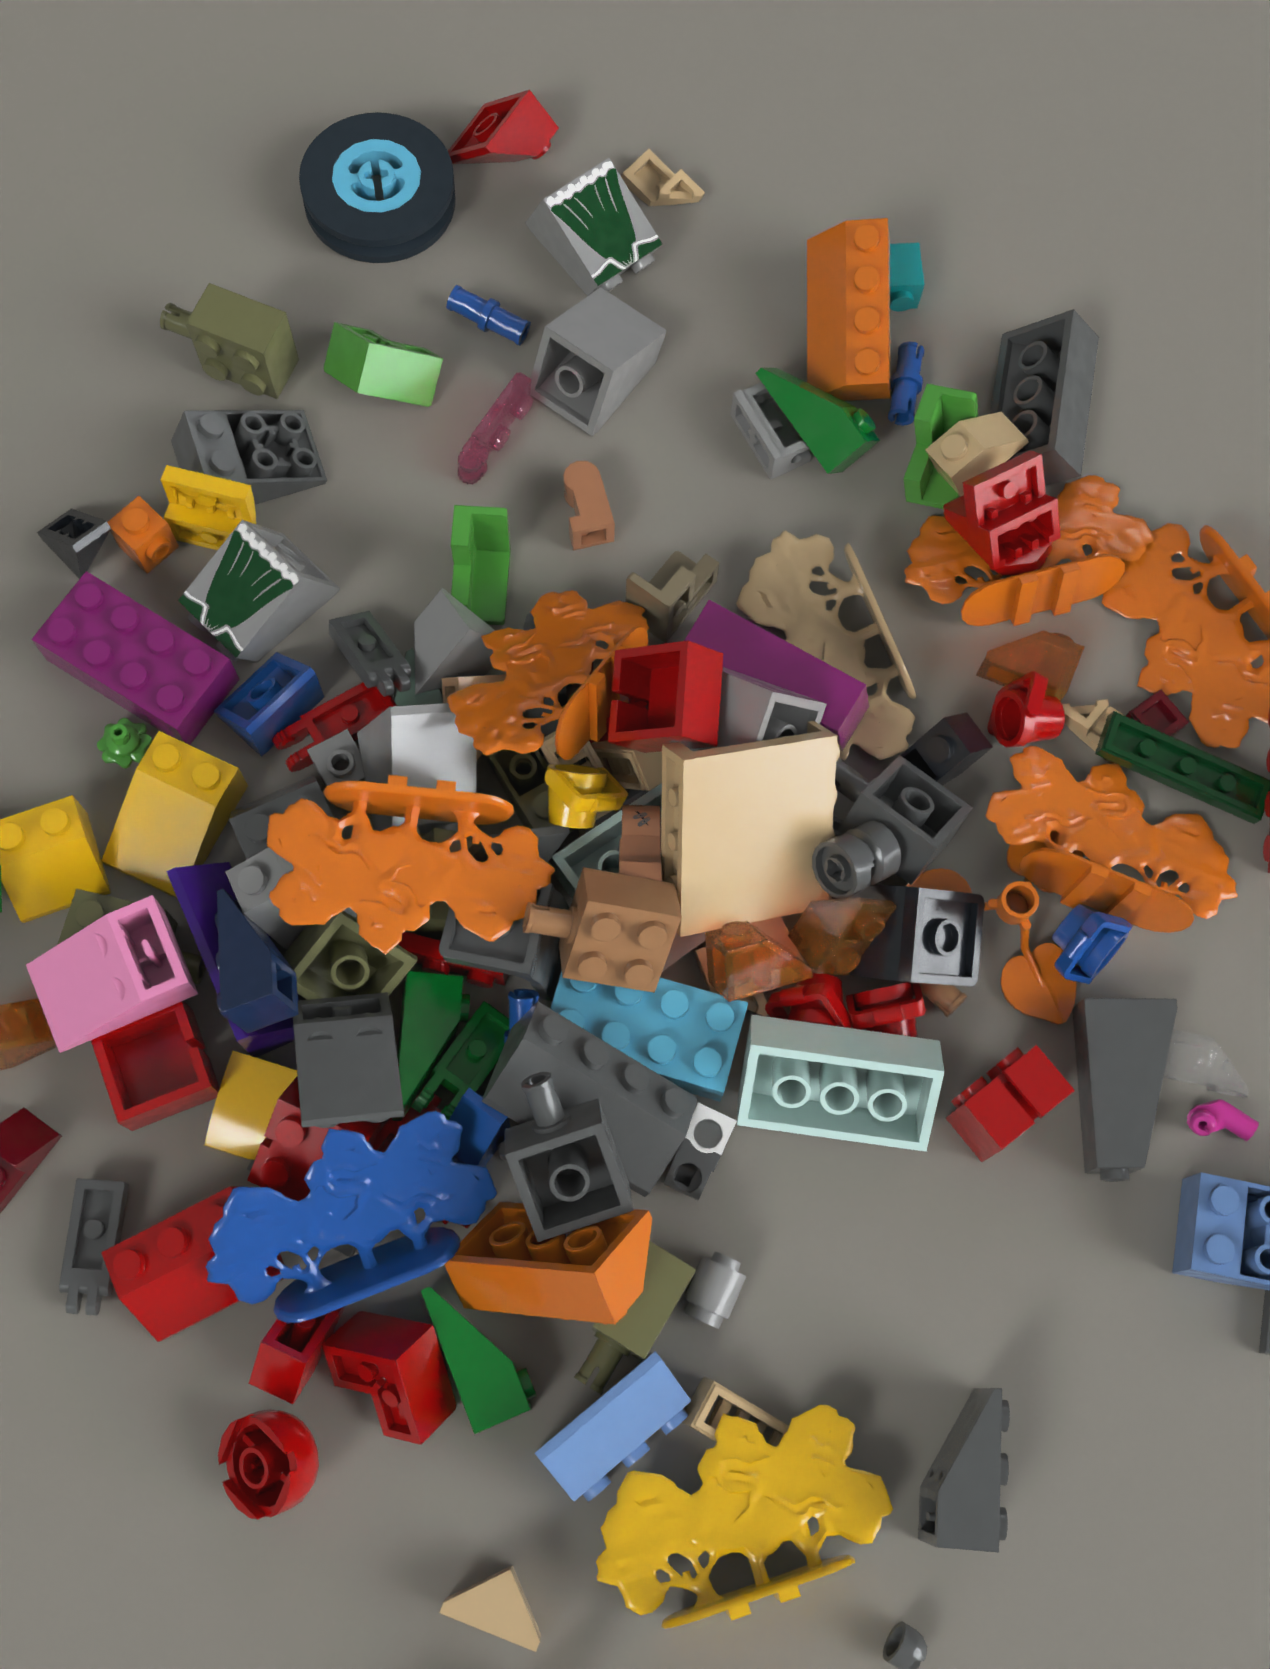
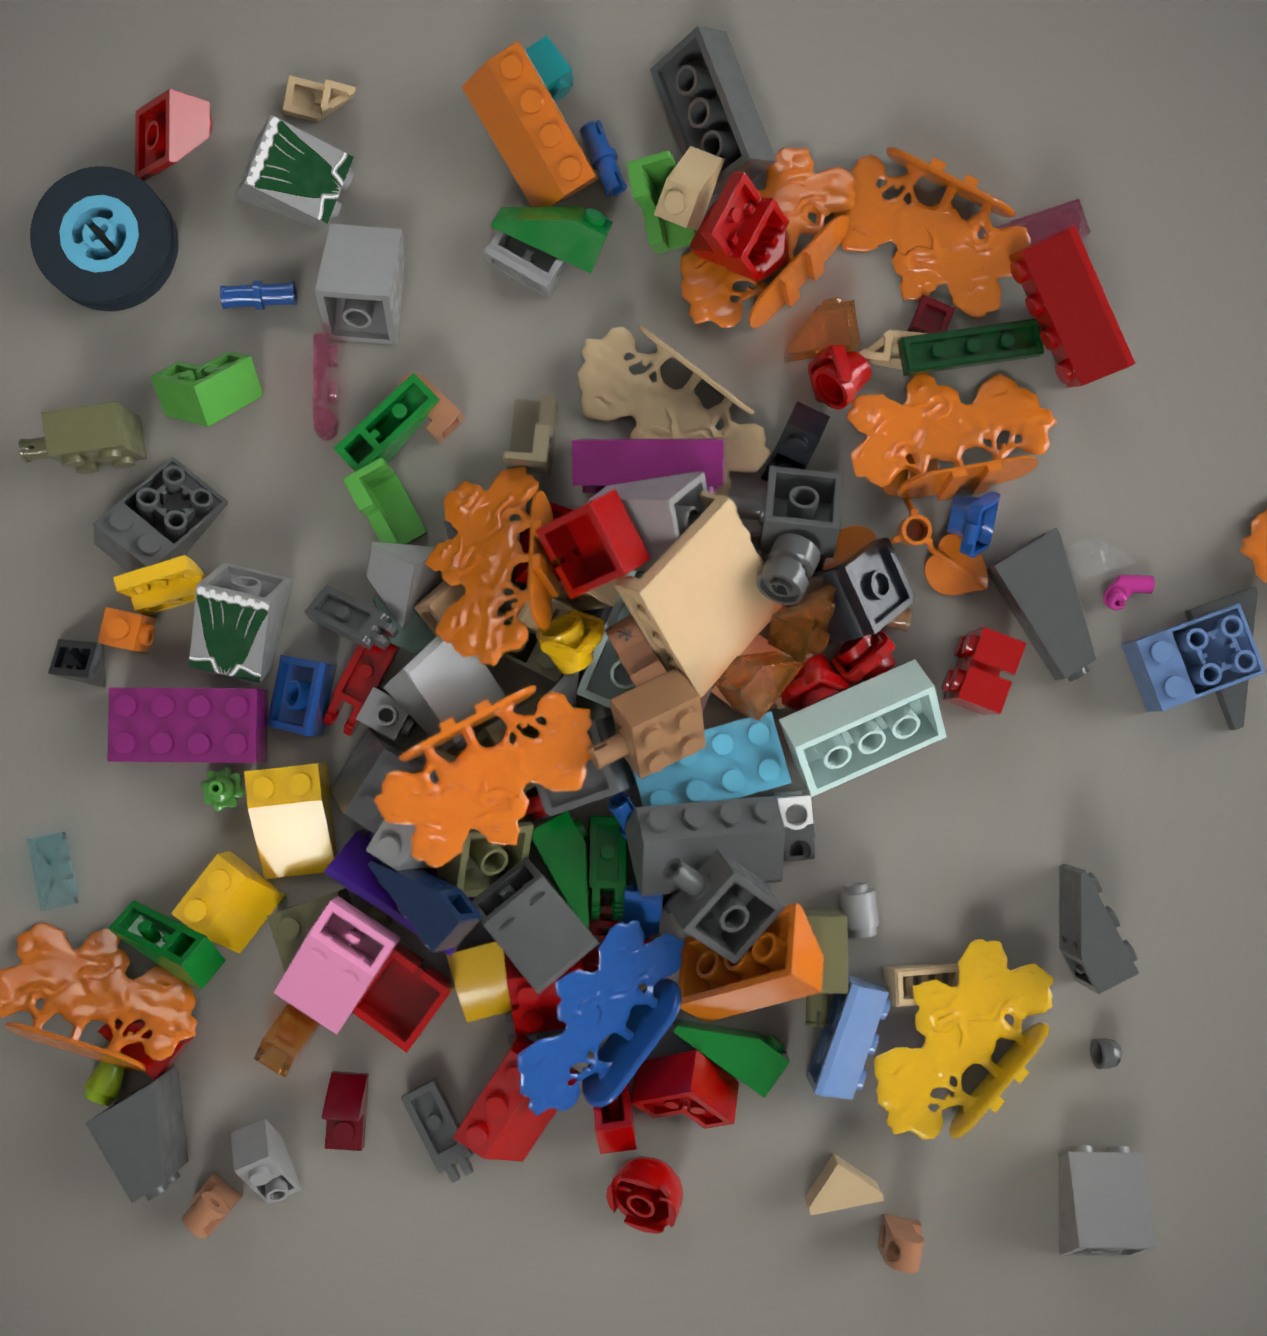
camera: 20 degrees left, 15 degrees up
(536, 492) = (388, 425): none -> green slope

